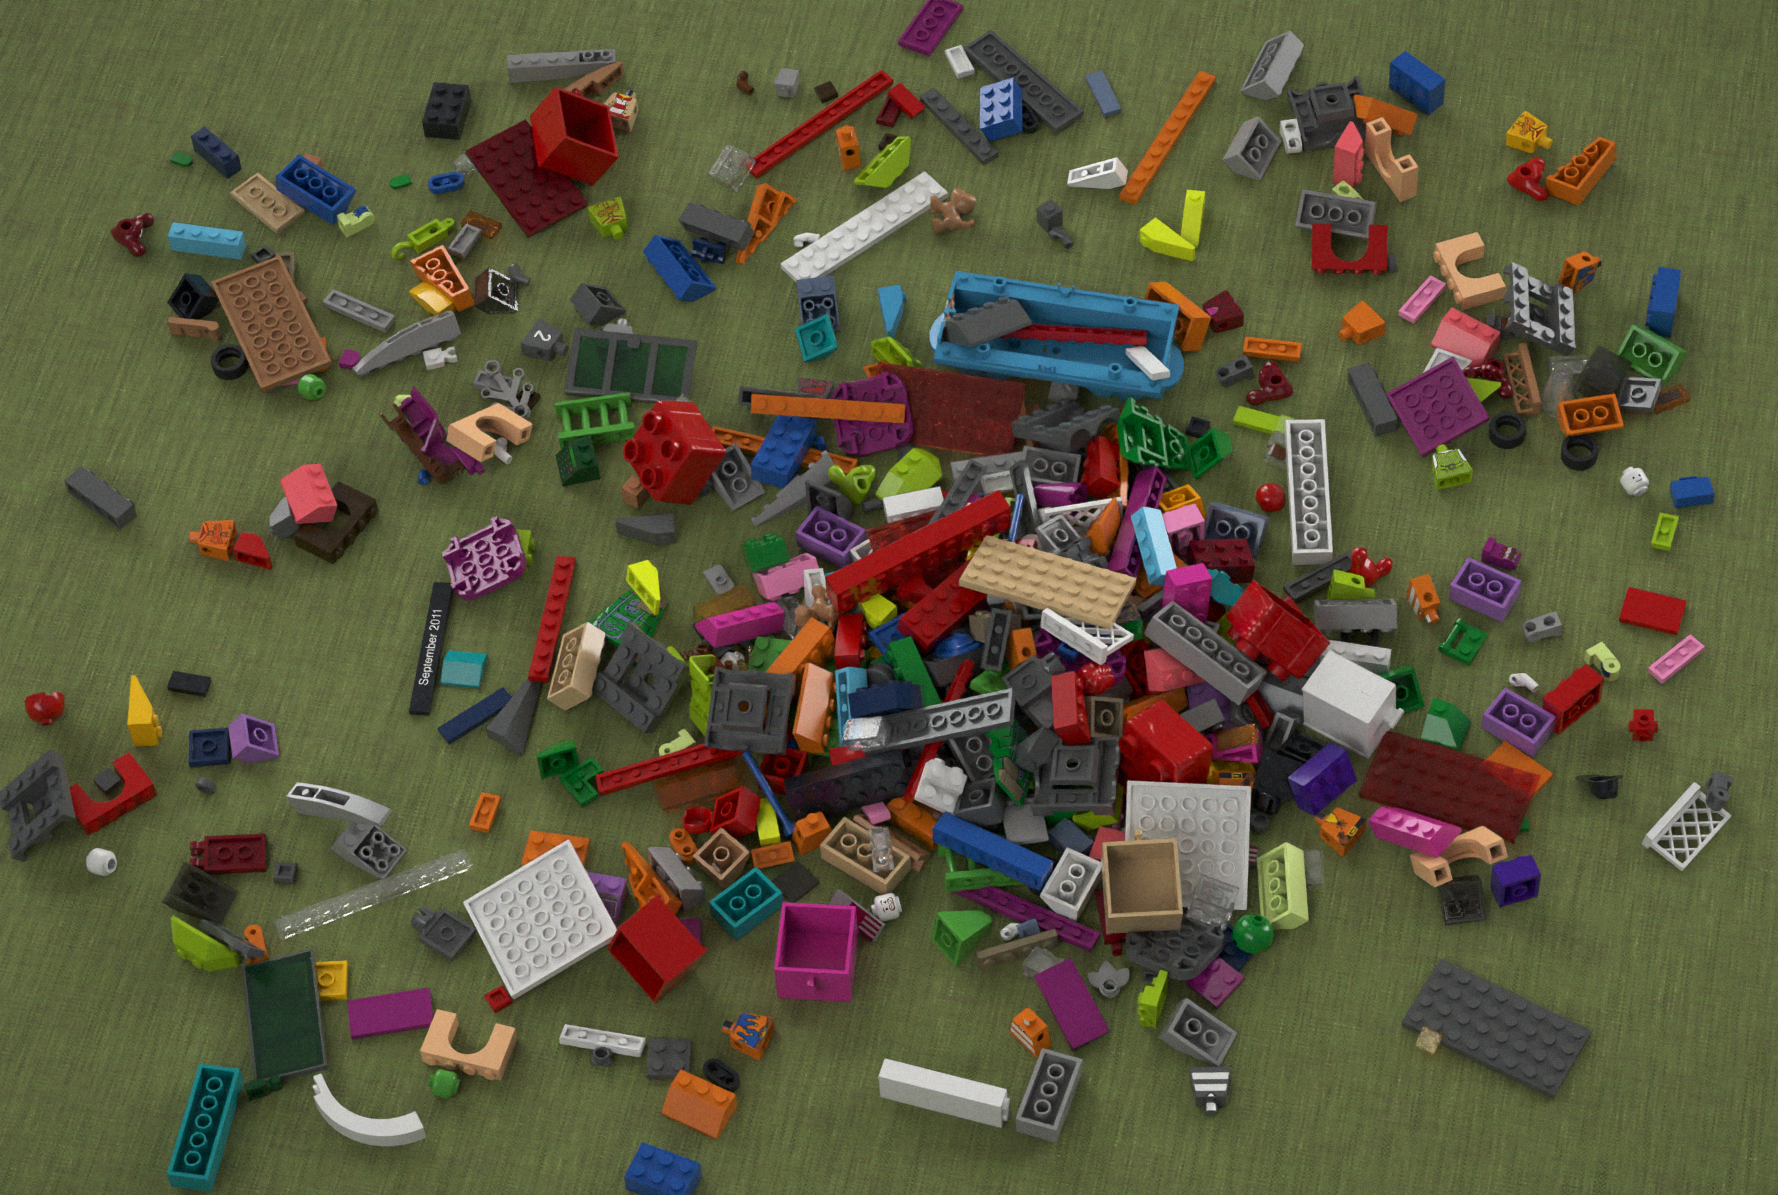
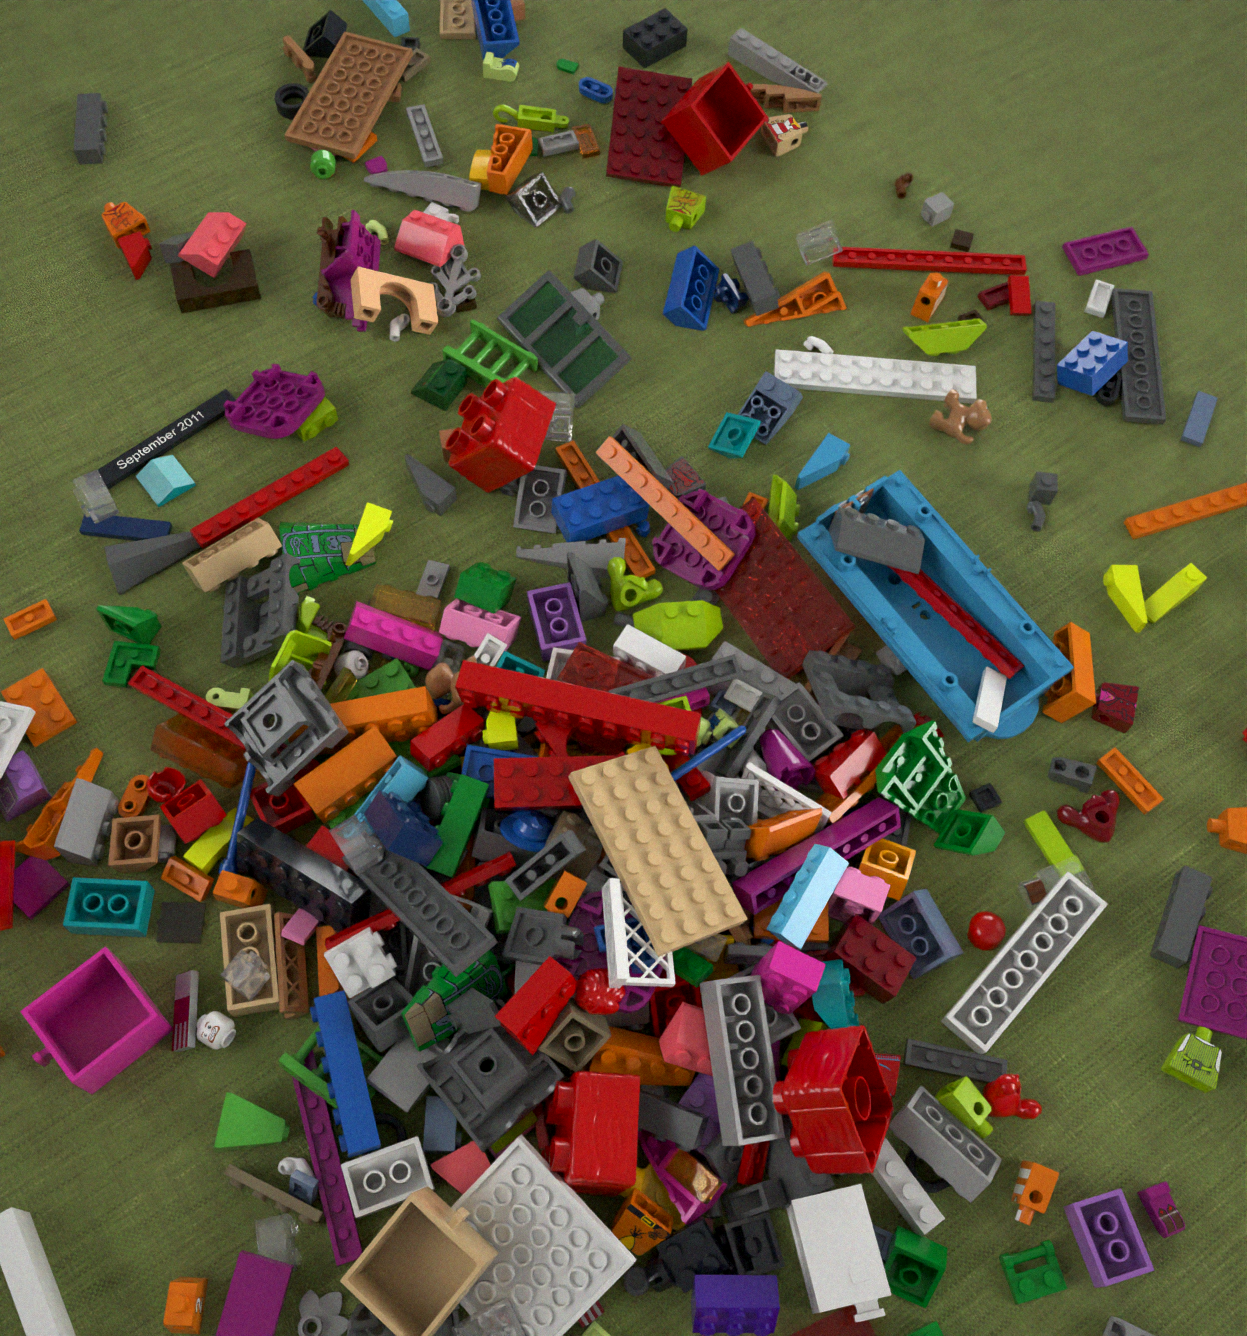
camera: 35 degrees right, 10 degrees up
(437, 709) = (95, 496): none -> clear brick
(457, 375) = (428, 238): none -> coral slope
(543, 342) = (524, 264): dark grey torso -> none
(1100, 175) = (1124, 487): white slope -> none

